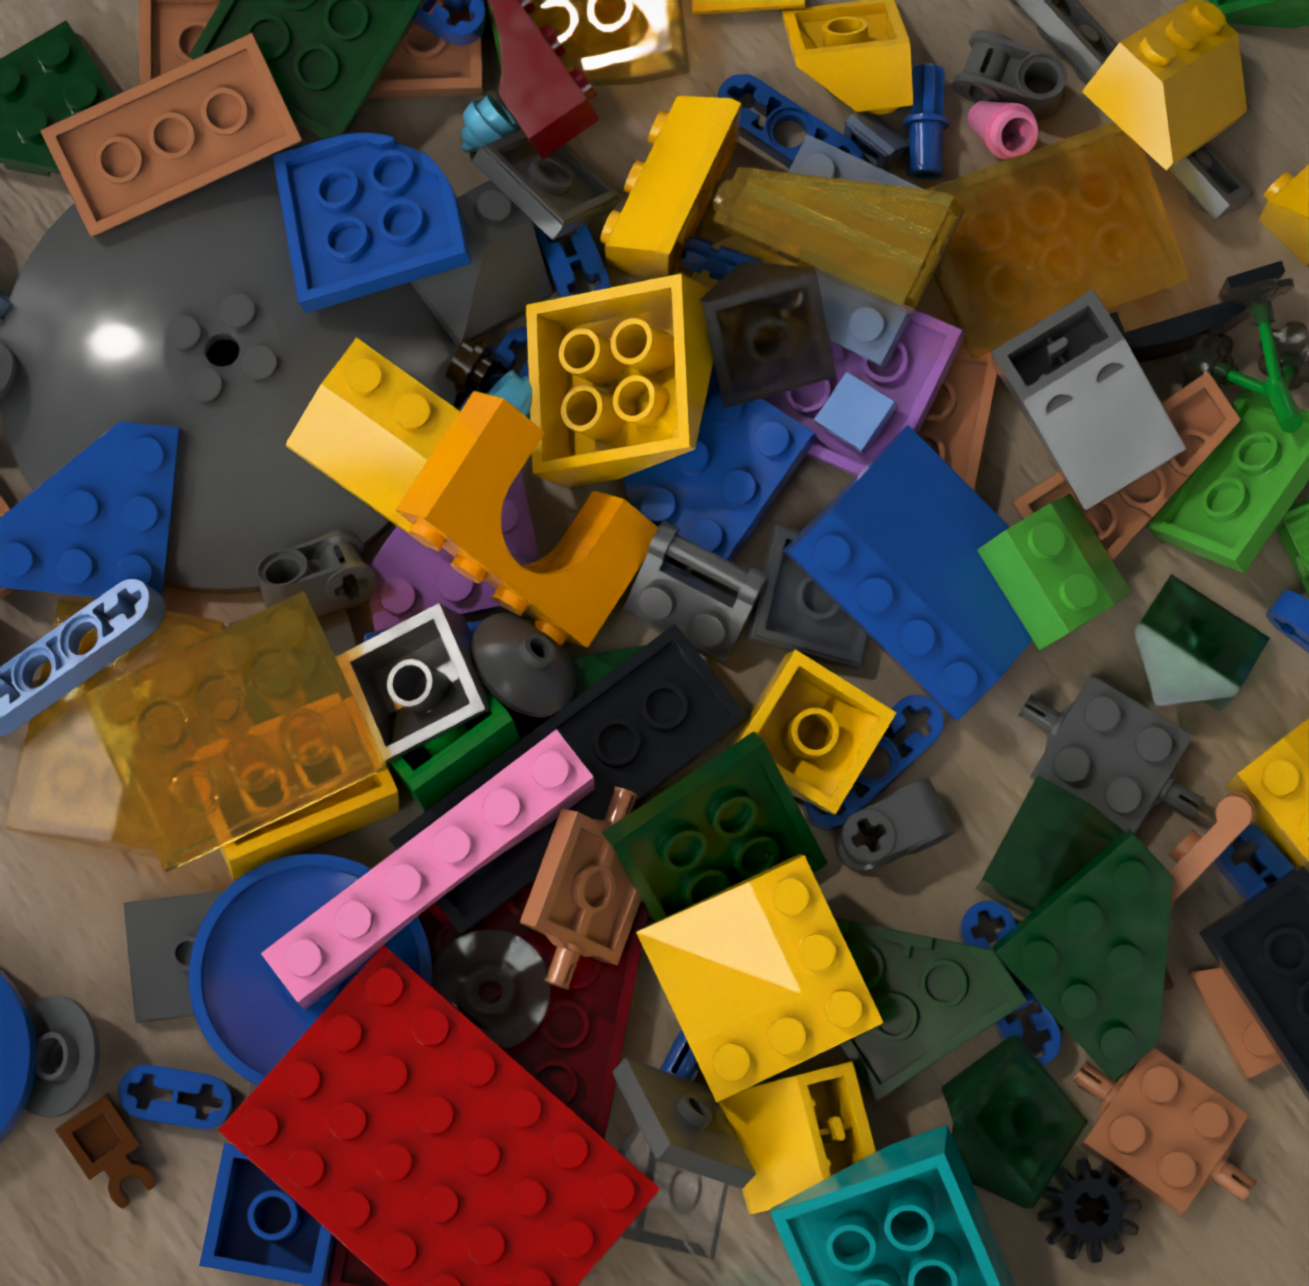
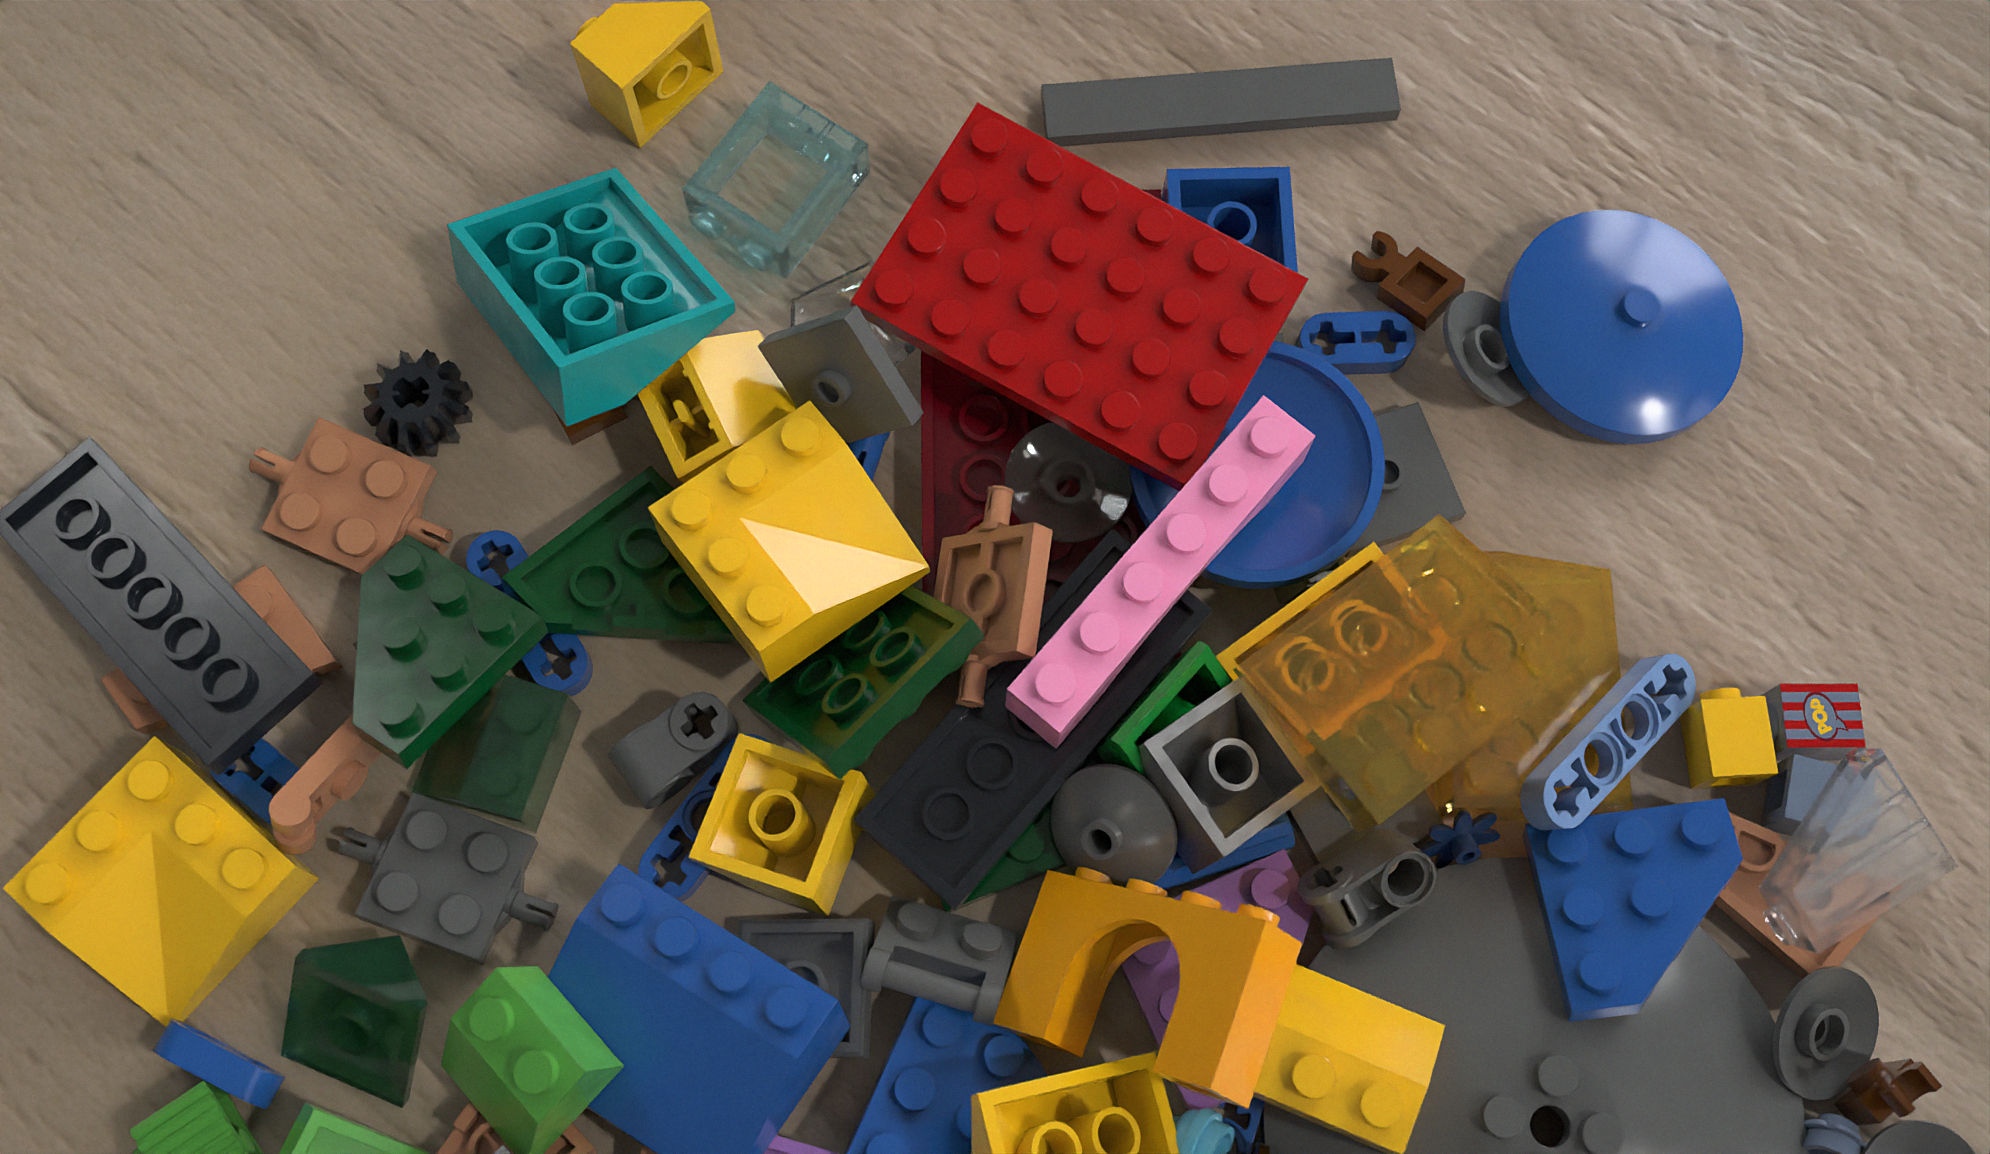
camera: 165 degrees right, 5 degrees down
(220, 603) = (1461, 840): none -> dark blue plant
(1011, 1122) = (508, 466): clear green slope -> none

